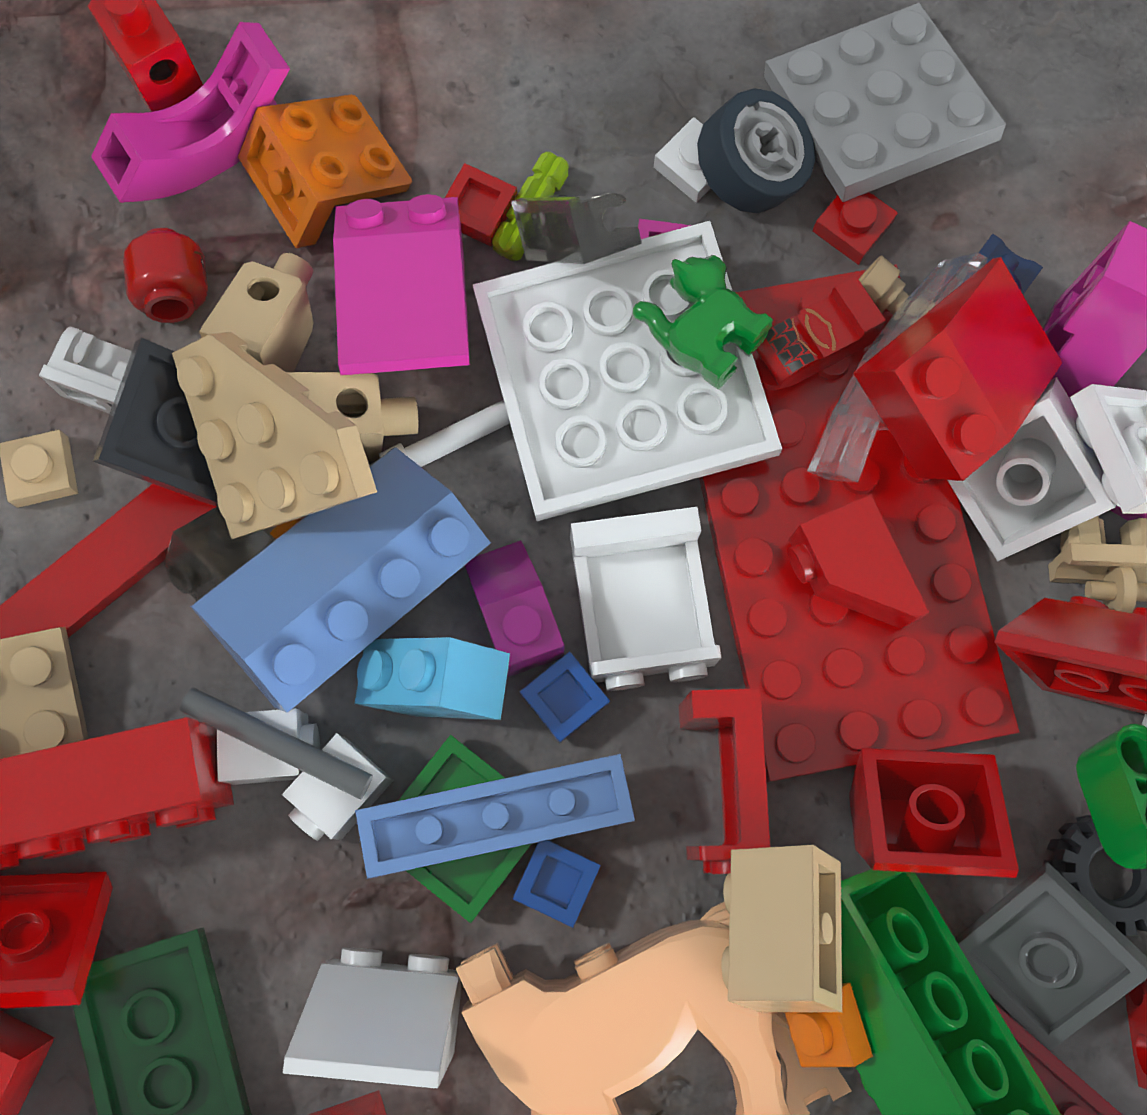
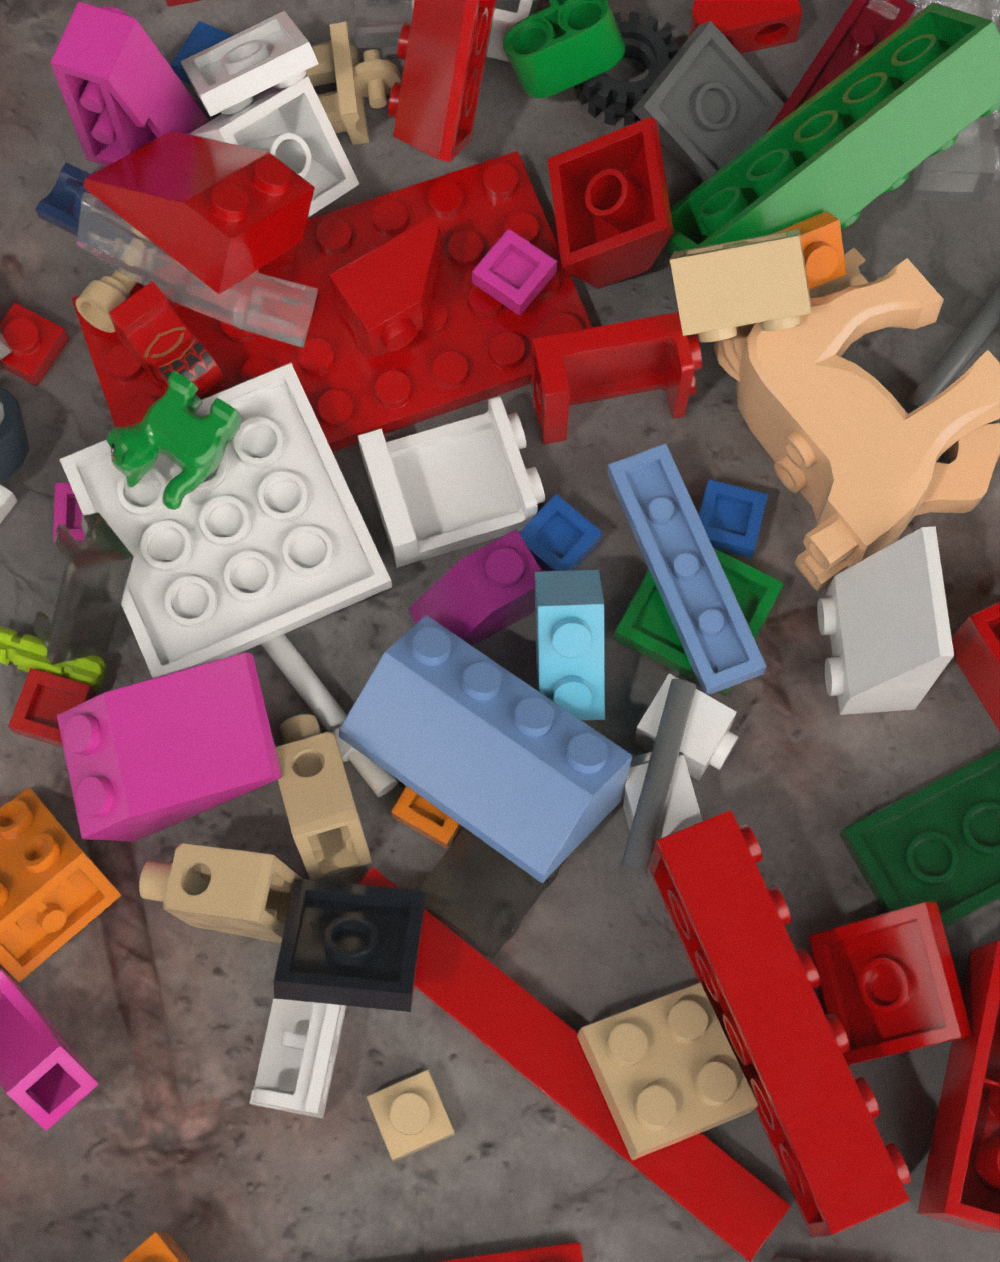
camera: 95 degrees left, 5 degrees down
(165, 275) = (176, 1017): red head -> none
(265, 440) = (366, 826): tan plate -> none
(862, 696) = (514, 272): none -> dark pink plate

